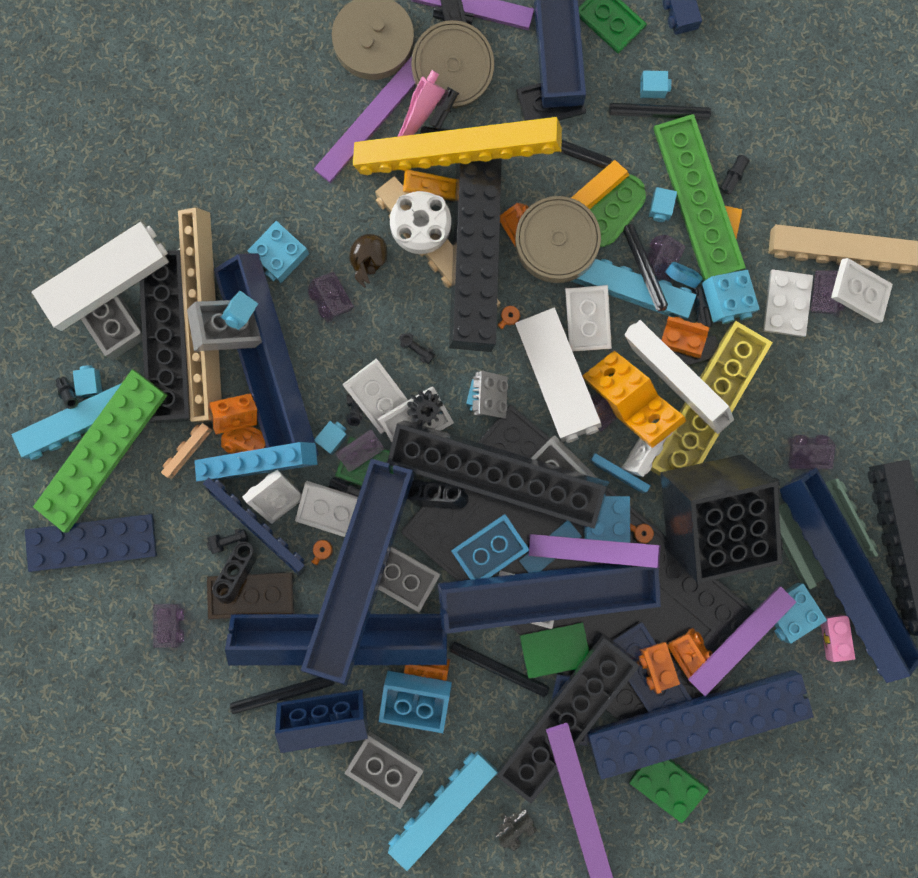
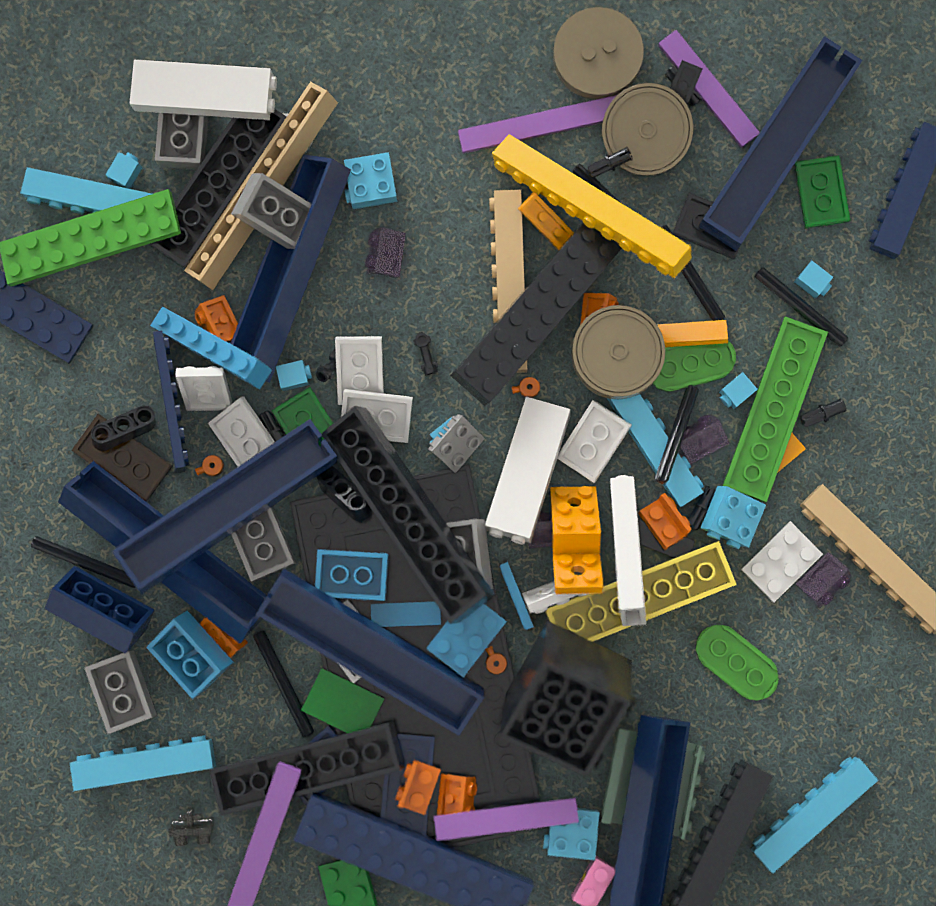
camera: 40 degrees right, 0 degrees up
(66, 392) = (99, 166): black axle -> none
(167, 625) = (34, 429): clear purple bracket -> none
(185, 450) = (162, 292): light nougat plate -> none
(216, 543) = (127, 391): black bar -> none
(233, 413) = (225, 291): orange bracket -> none
(239, 310) = (294, 208): medium azure brick -> none
(360, 451) = (308, 405): clear purple bracket -> none
(367, 256) = (448, 240): dark brown helmet -> none
(417, 406) = (381, 408): black gear -> none
(420, 222) = (510, 247): white piece -> none
(422, 104) = (593, 145): bright pink piece -> none
(594, 550) = (438, 643): medium lavender tile -> none
(684, 275) = (707, 467): dark azure beam -> none
(811, 452) = (698, 706): clear purple bracket -> none
(812, 399) = (737, 662): none -> bright green tile
(861, 290) = (853, 600): white plate -> none

